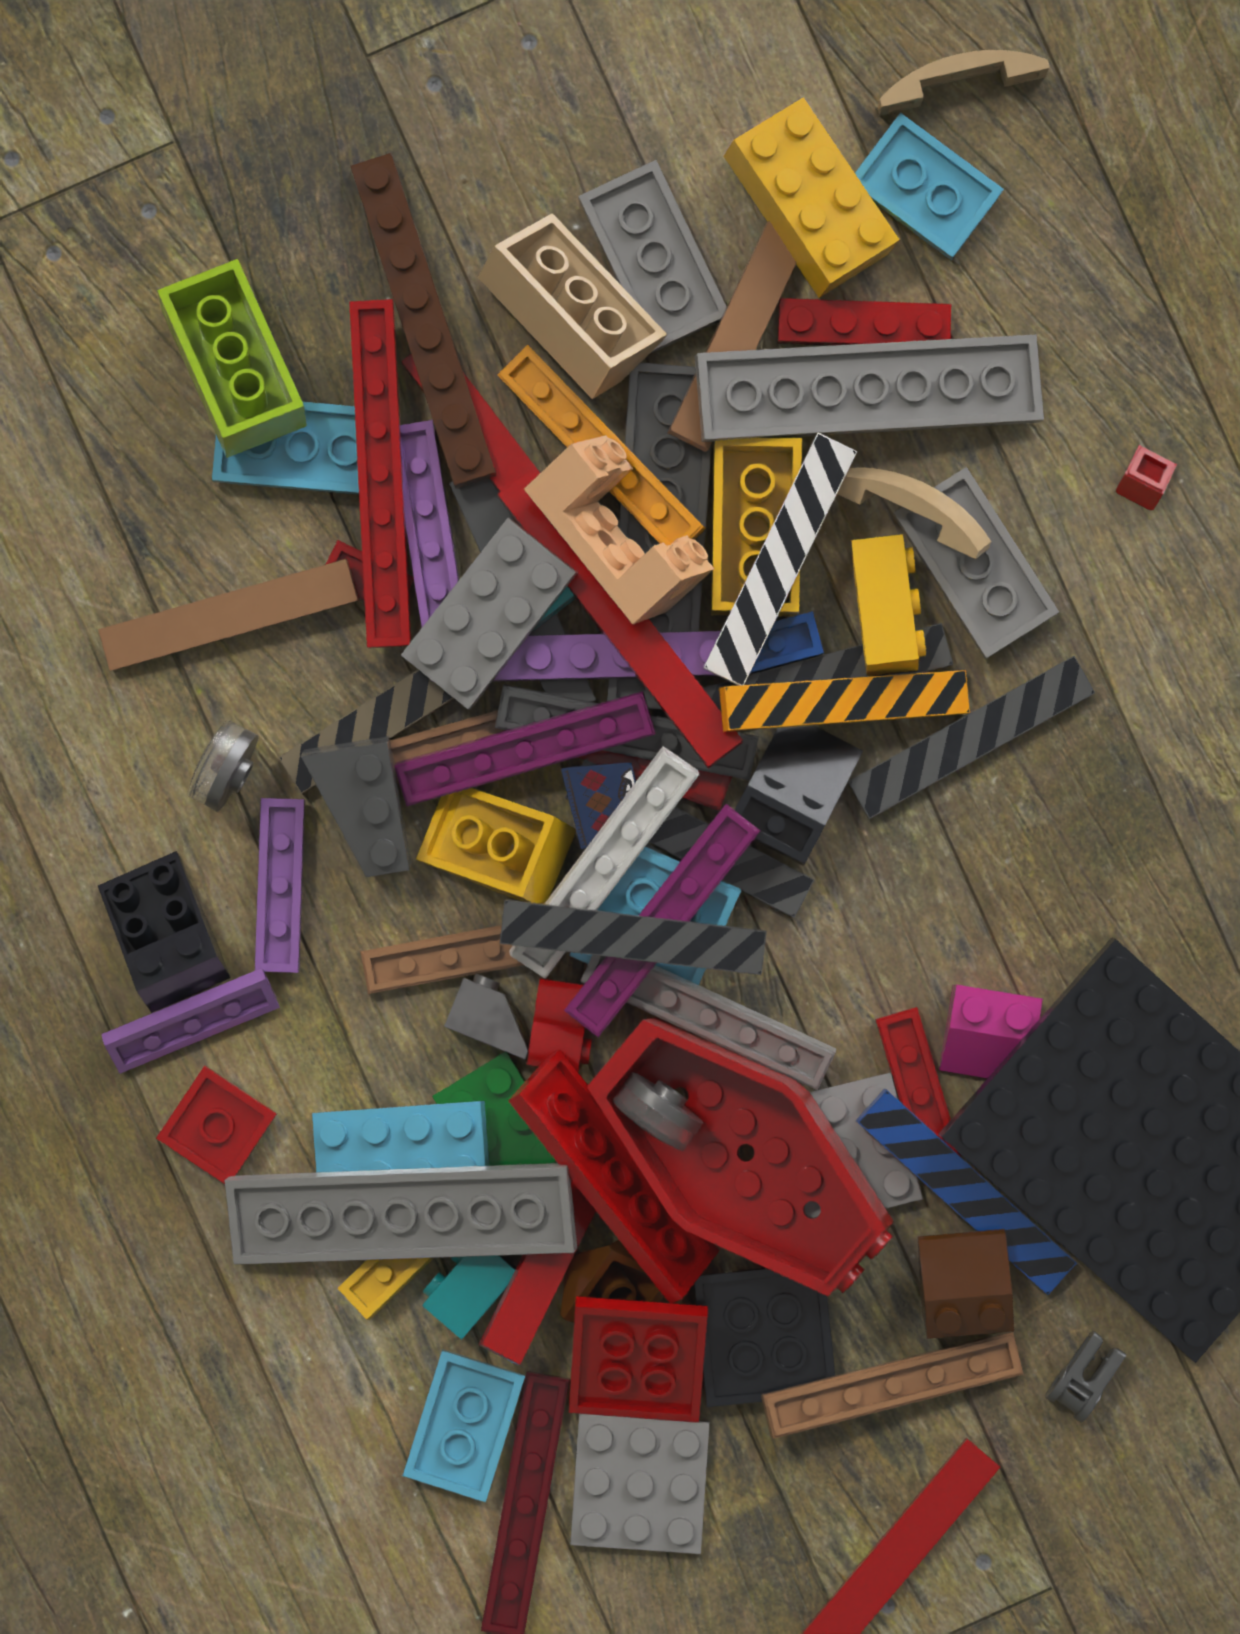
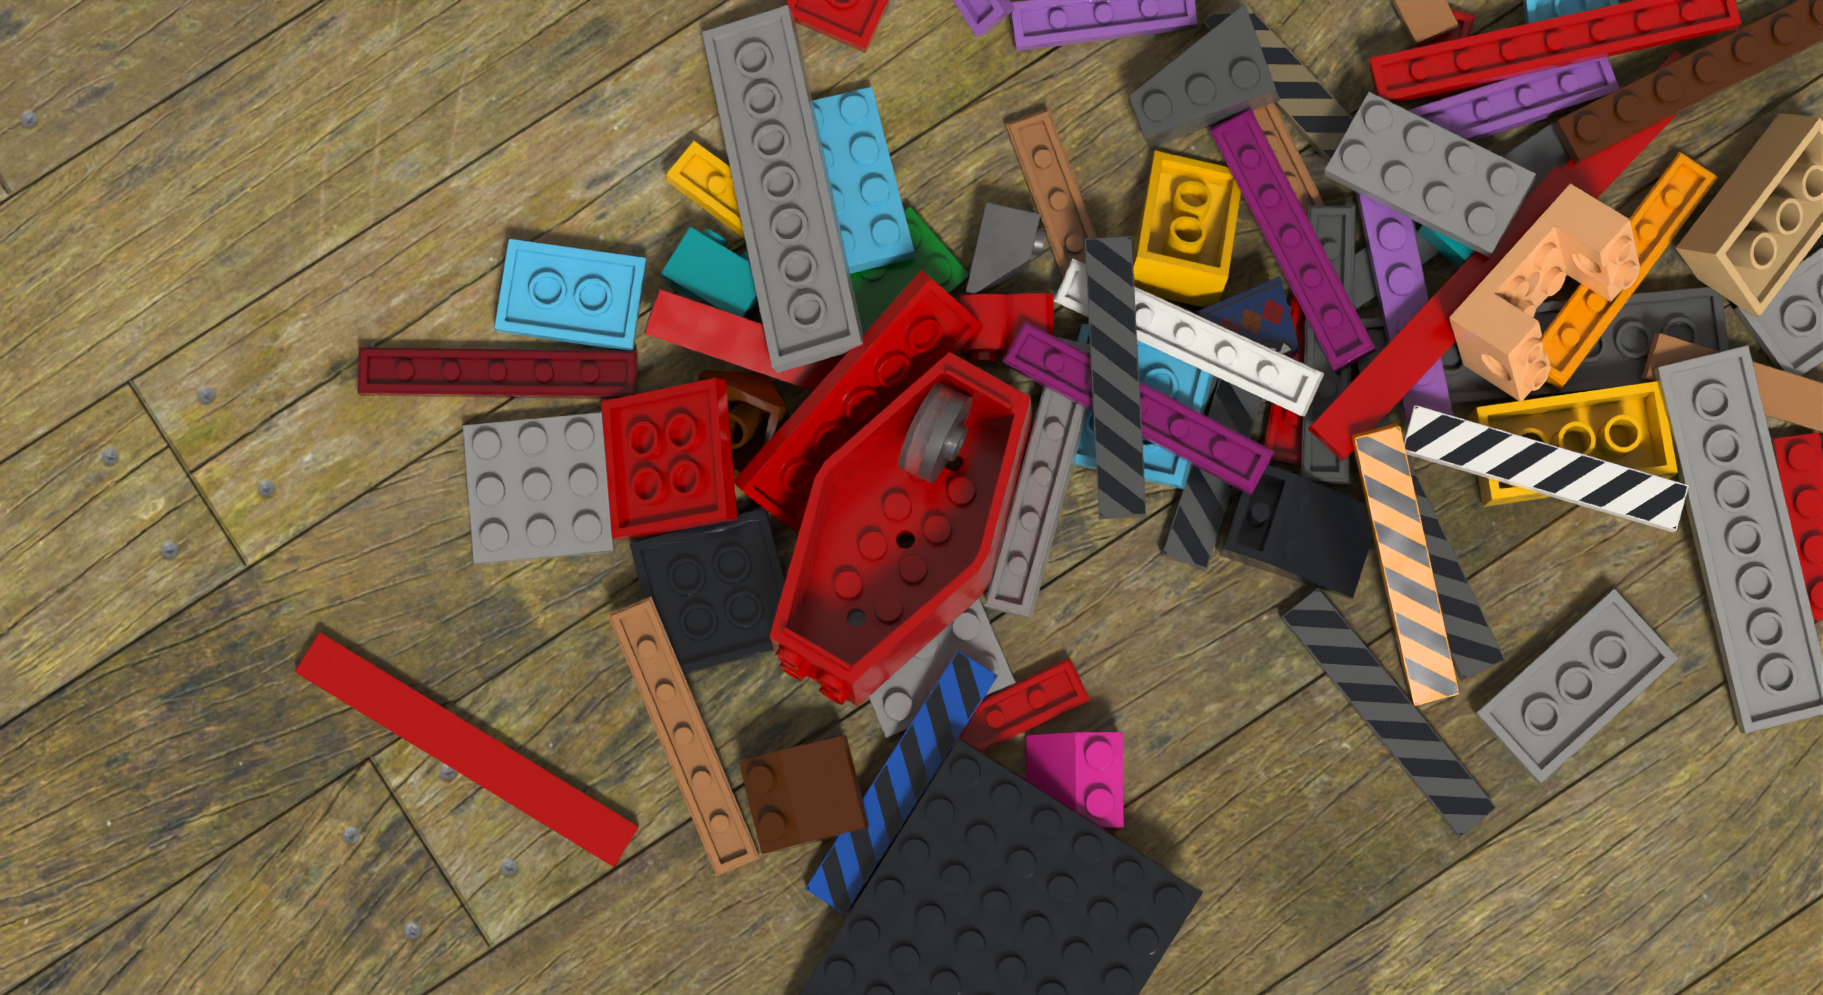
camera: 75 degrees right, 5 degrees down
(789, 642) = (1452, 497): blue plate -> none
(887, 604) = (1514, 595): yellow brick -> none
(959, 527) = (1615, 654): tan slope -> none
(1072, 1378) = (710, 948): dark grey piece -> none
(1146, 478) = (1701, 856): red slope -> none

